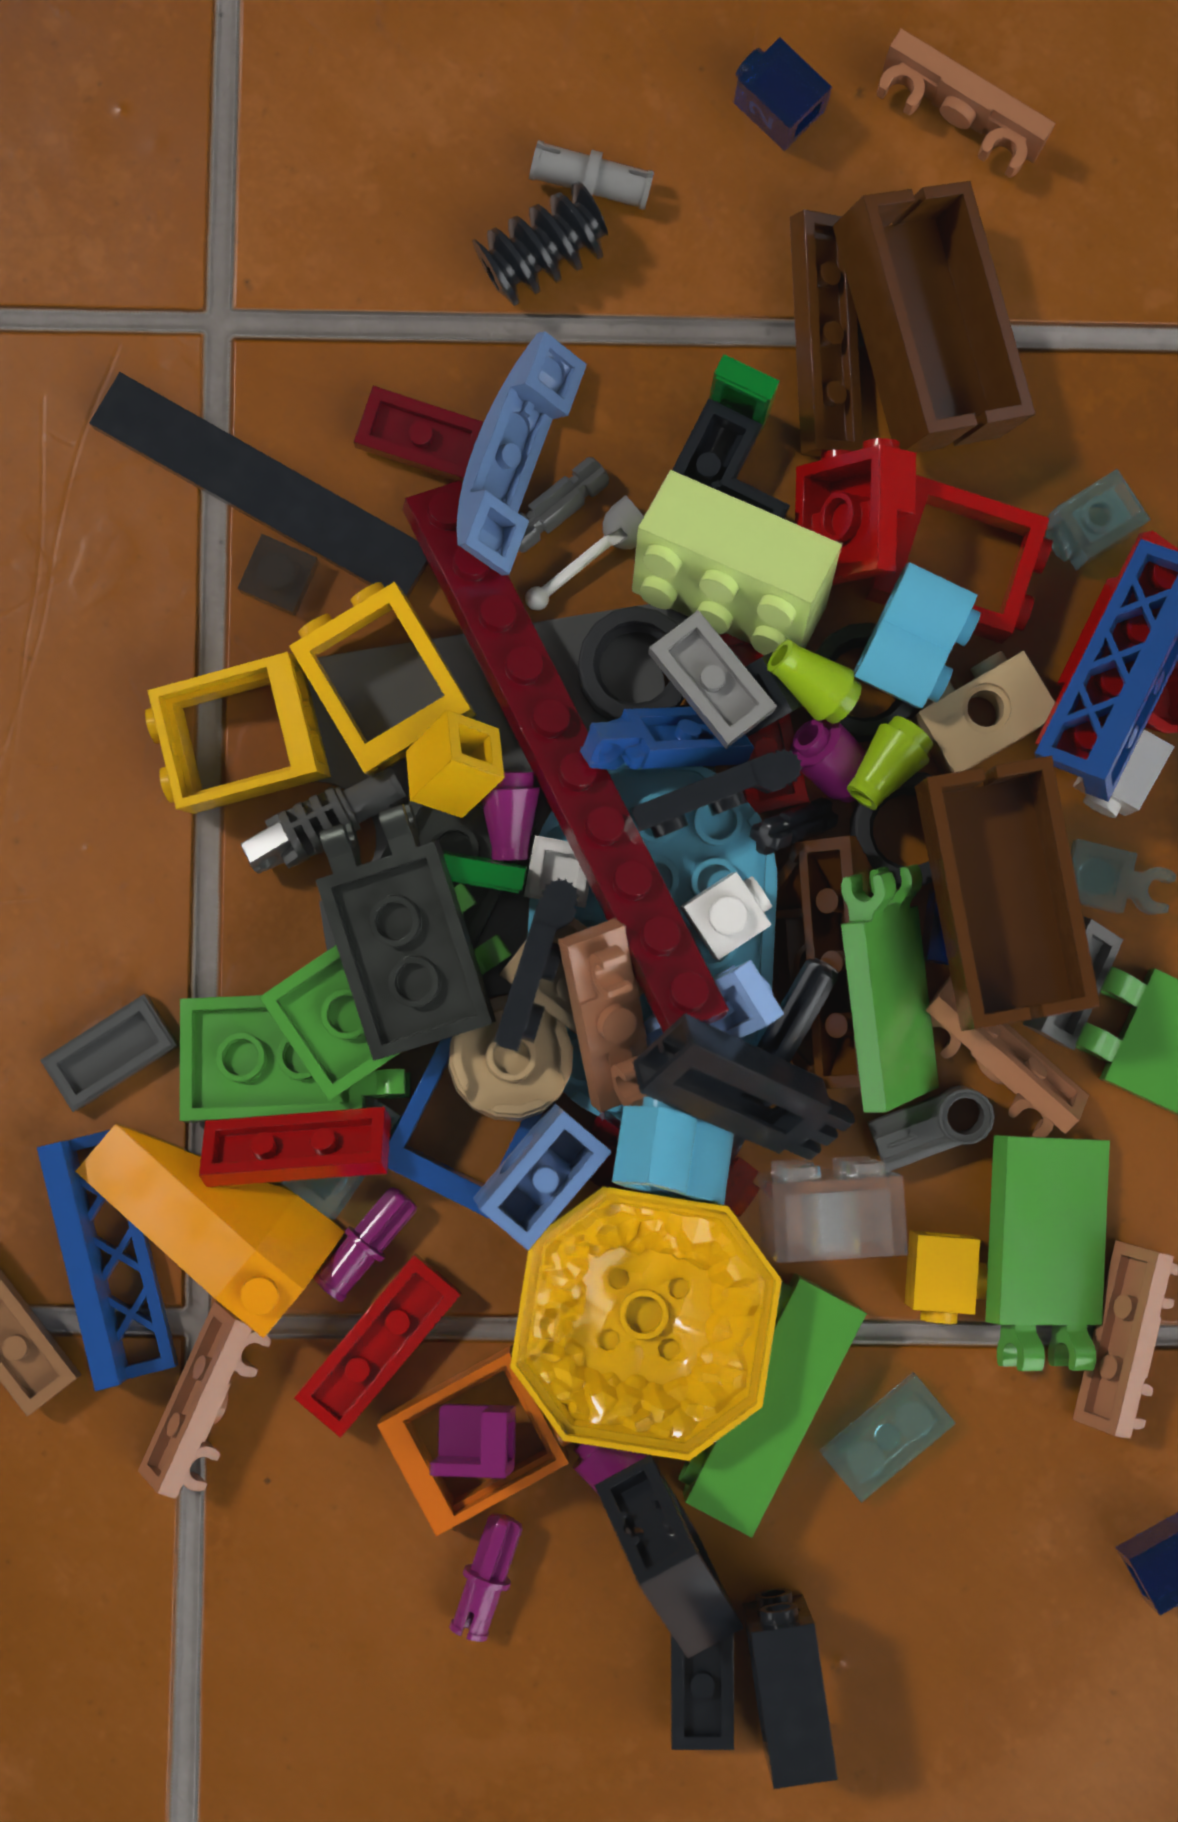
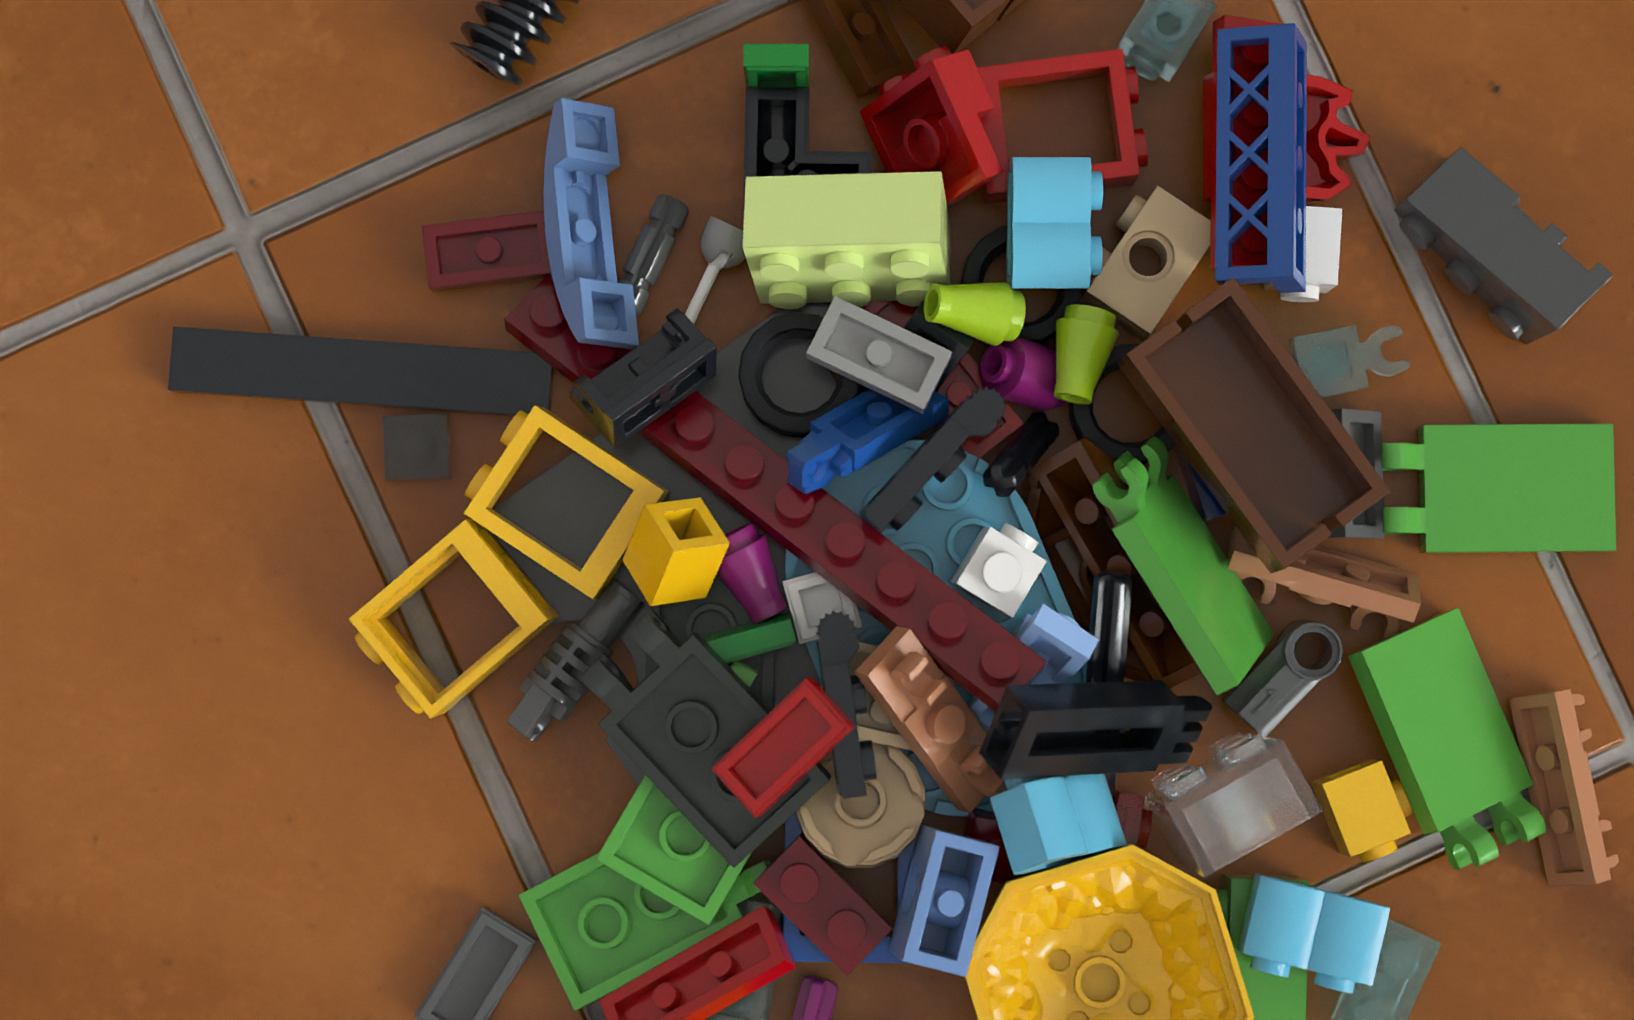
camera: 20 degrees left, 0 degrees up
(435, 1131) = (823, 905): none -> dark red plate
(465, 975) = (783, 747): none -> red tile
(501, 606) = (647, 380): none -> black hinge
(849, 1358) = (1312, 931): none -> medium azure brick

